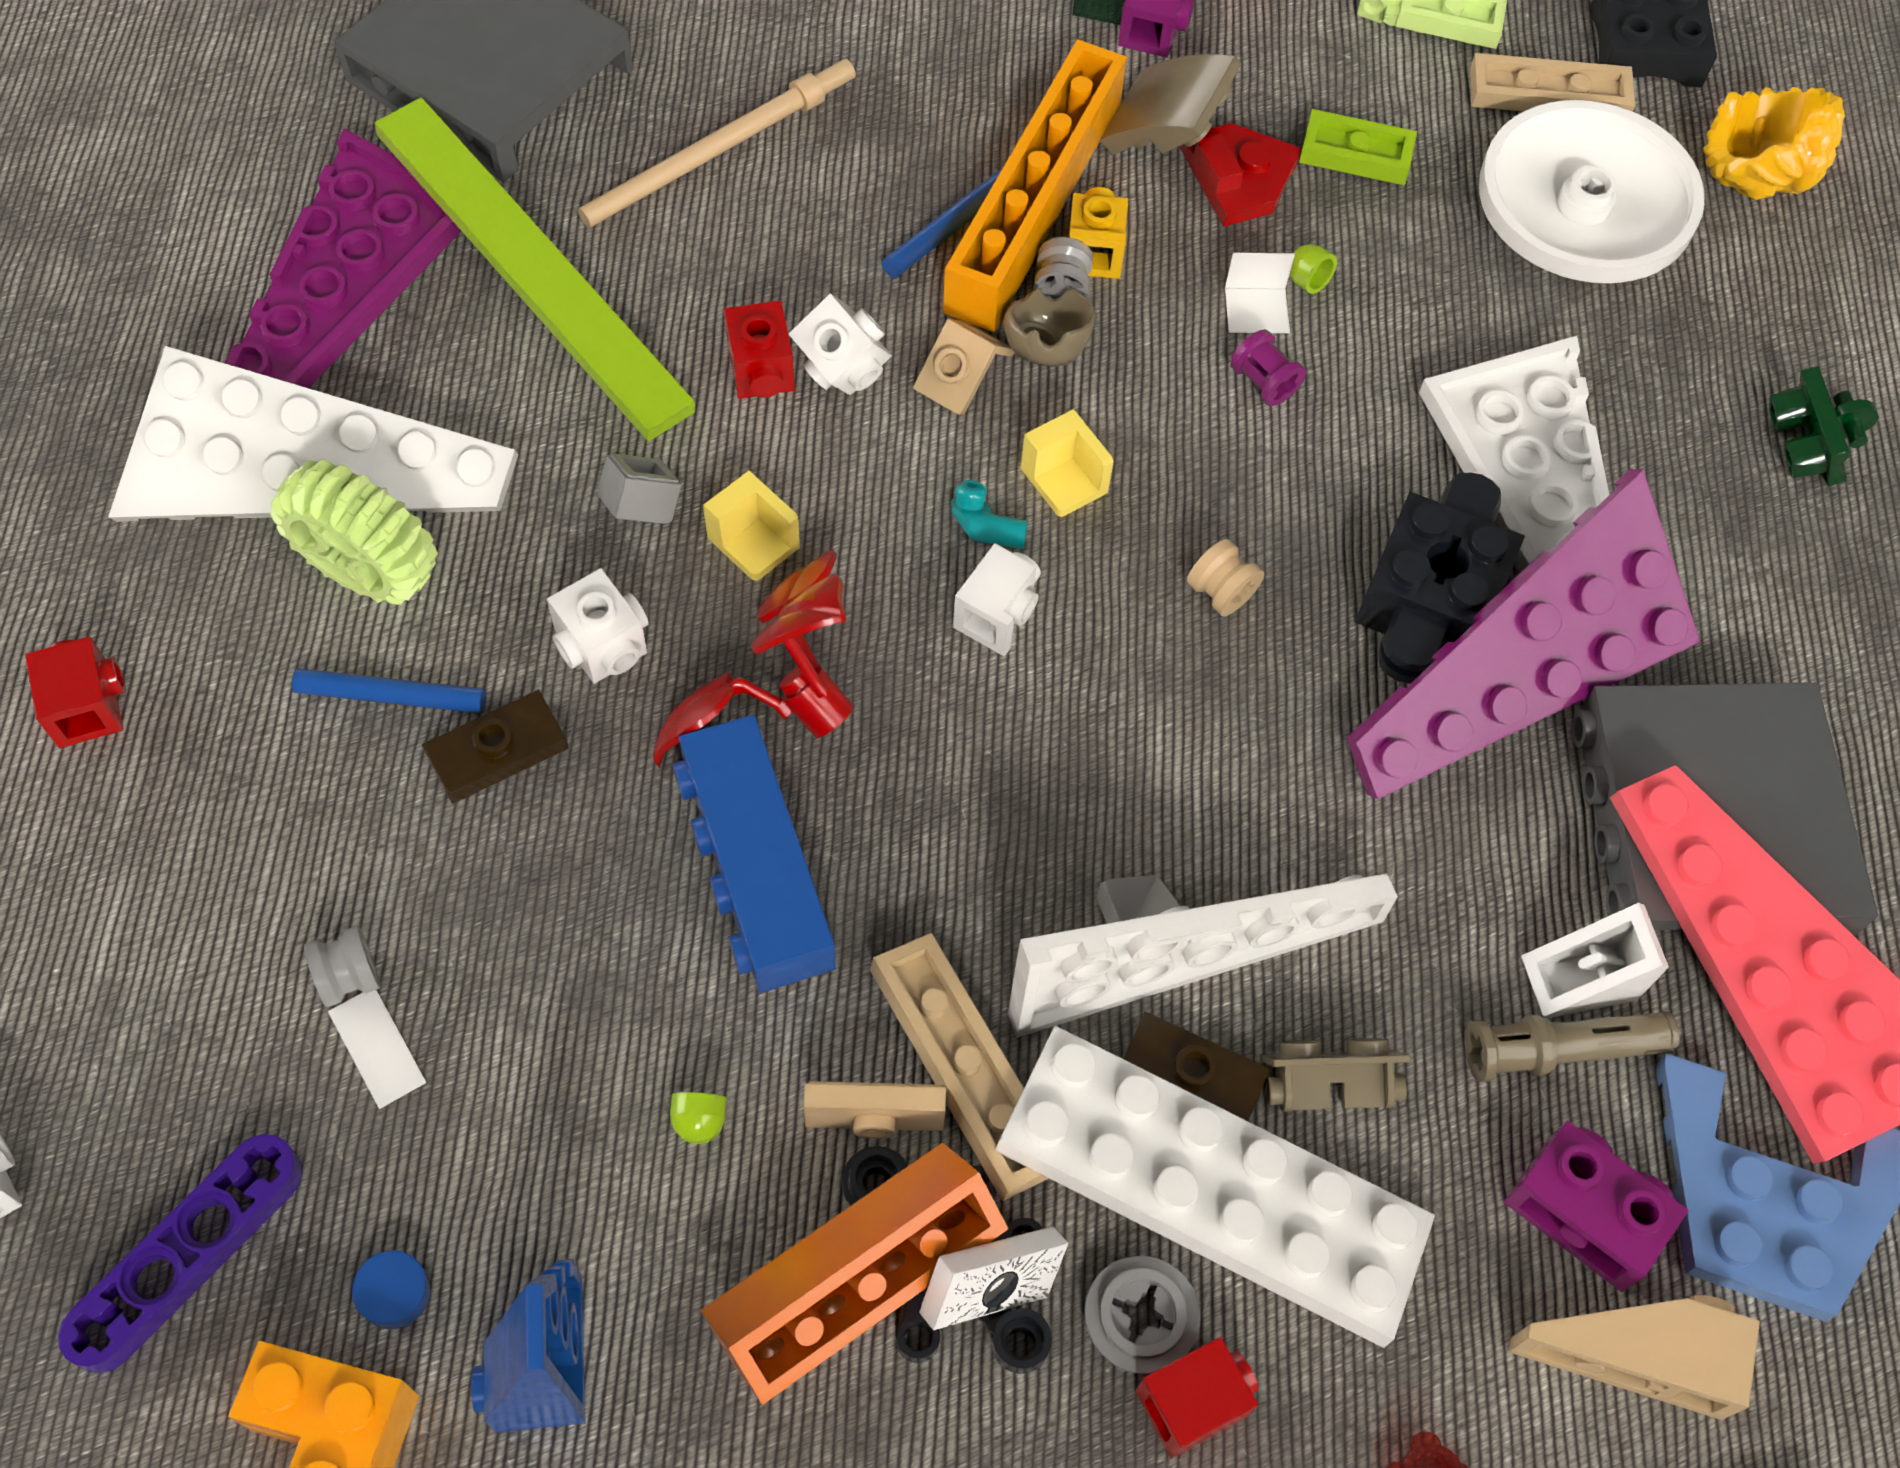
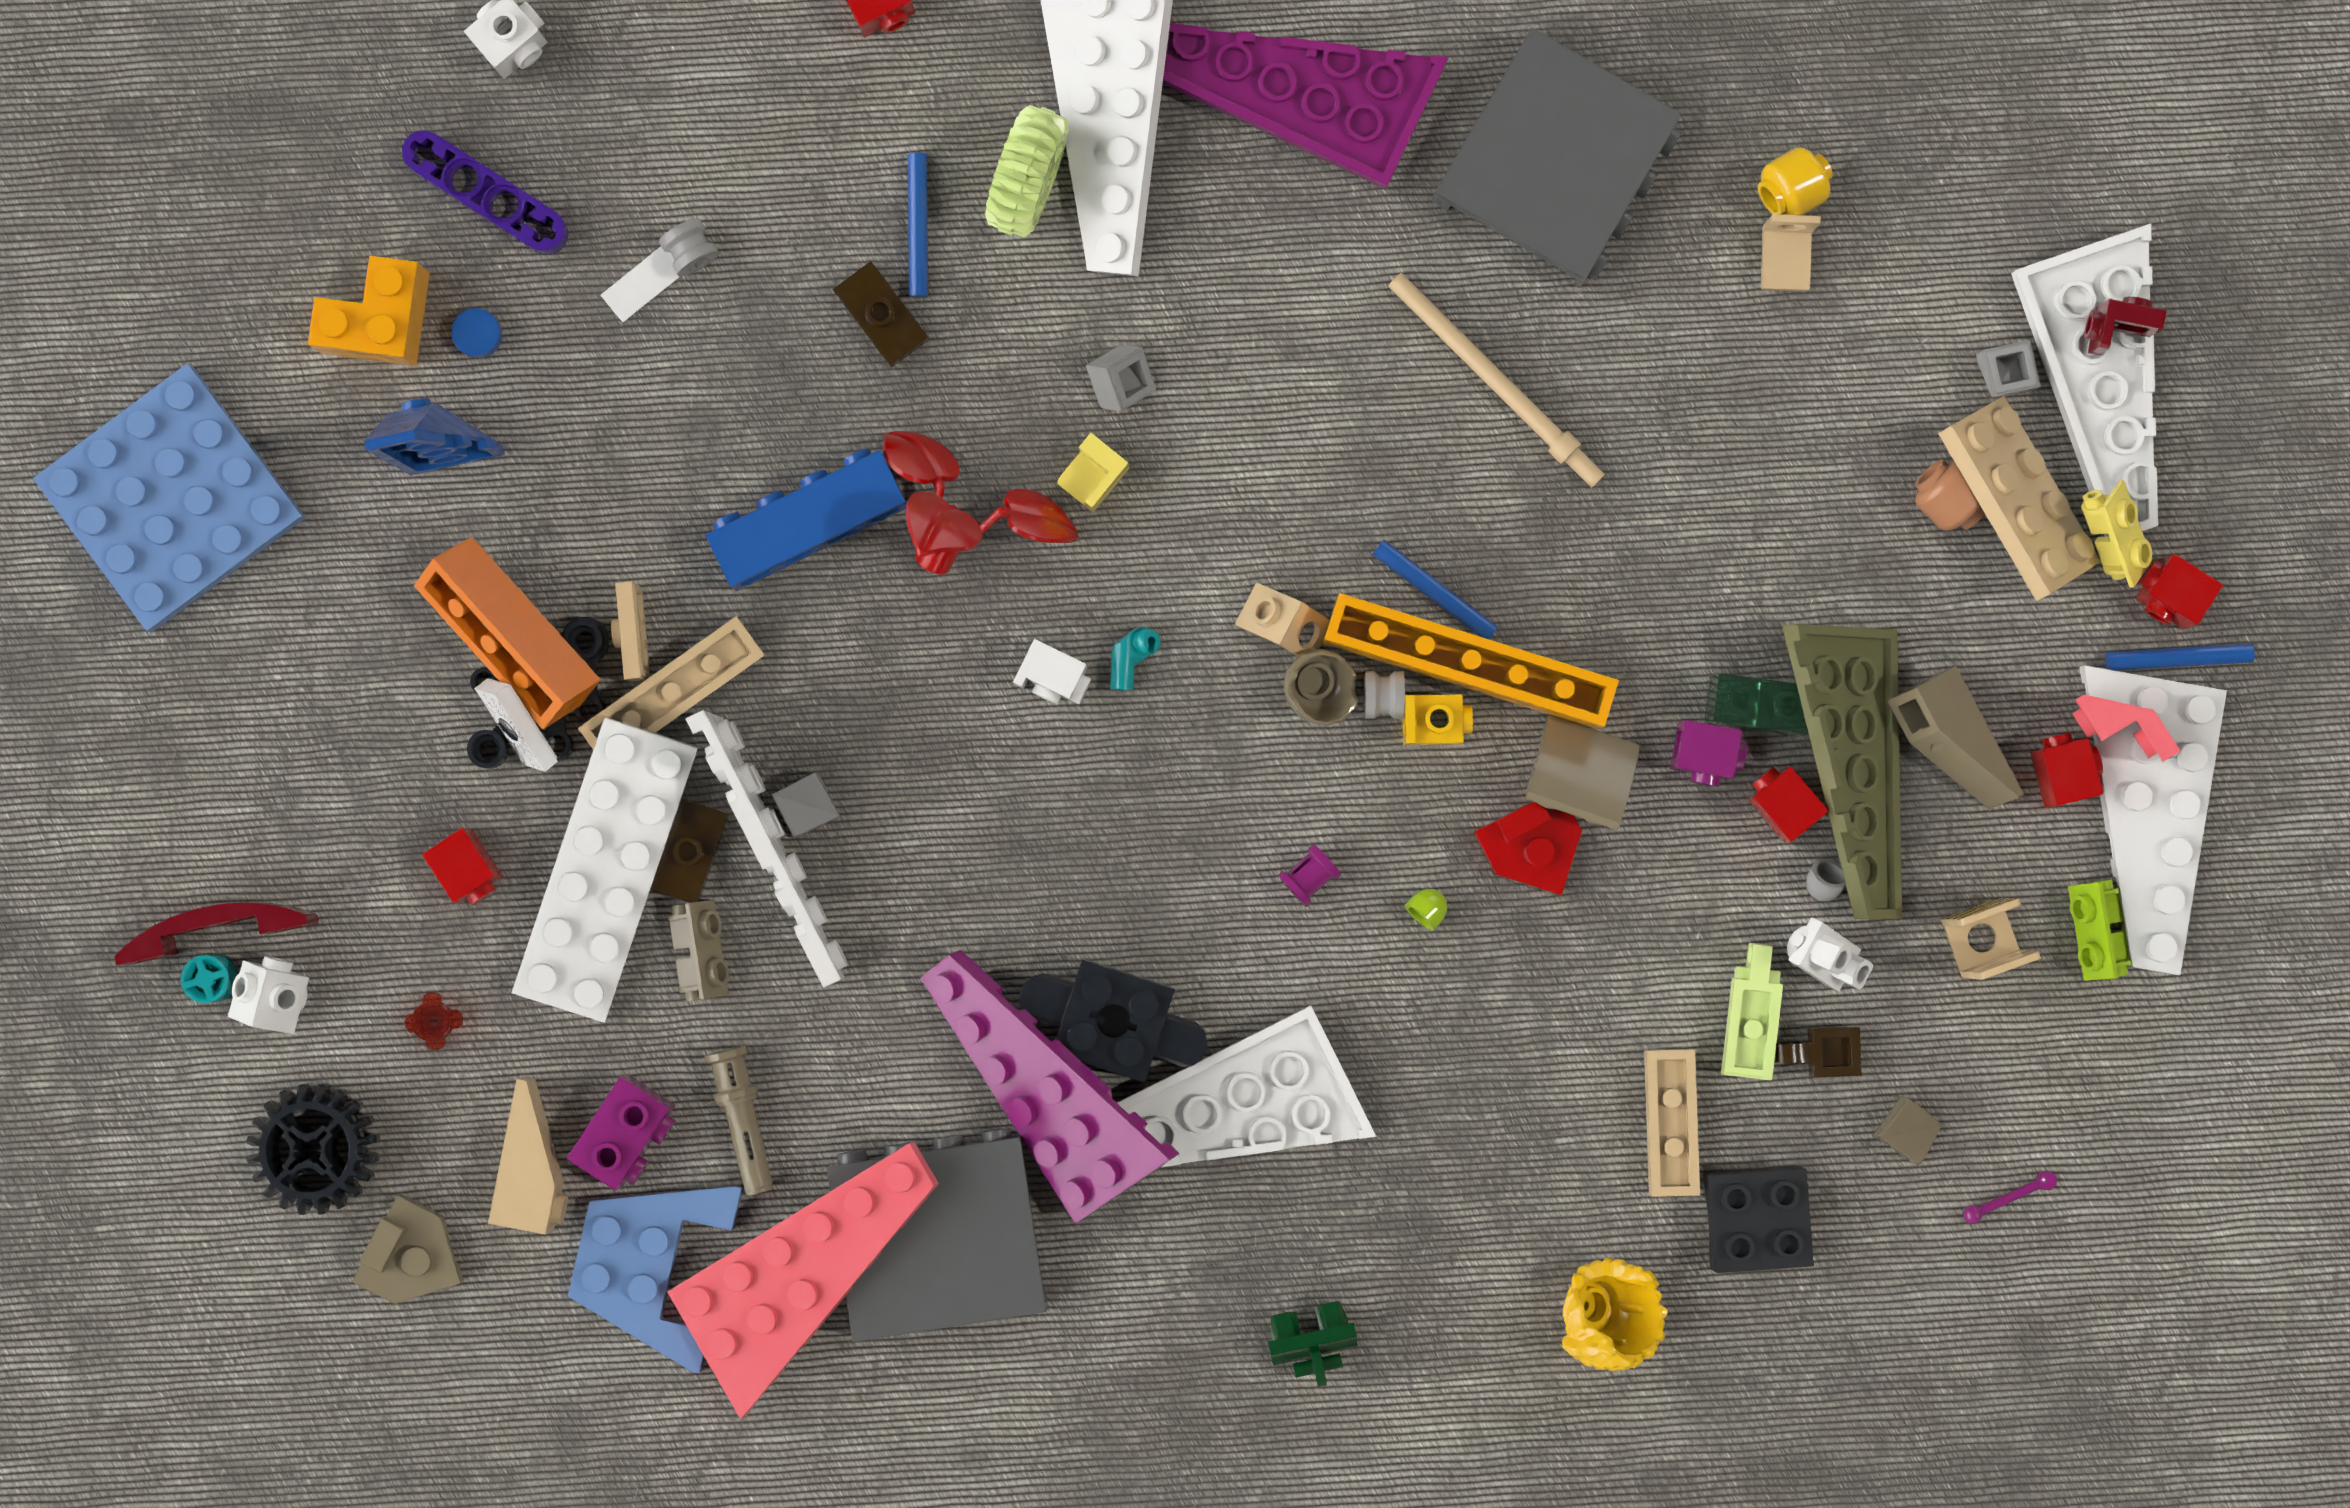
camera: 85 degrees right, 25 degrees up
(536, 269) = (1322, 247): lime tile -> none
(598, 626) = (982, 355): white brick -> none
(697, 1115) = (615, 512): lime hinge -> none
(759, 349) = (1263, 451): red brick -> none
(841, 346) = (1269, 518): white brick -> none
(1066, 463) = (1187, 715): light yellow panel -> none
(1174, 1305) = (496, 839): light grey gear -> none
(1225, 577) = (1095, 850): tan wheel -> none
(1258, 292) = (1386, 865): white sticker -> none
(1358, 147) = (1570, 945): lime plate -> none
(1591, 191) = (1535, 1150): white dish -> none
(1597, 964) = (798, 1133): white slope -> none

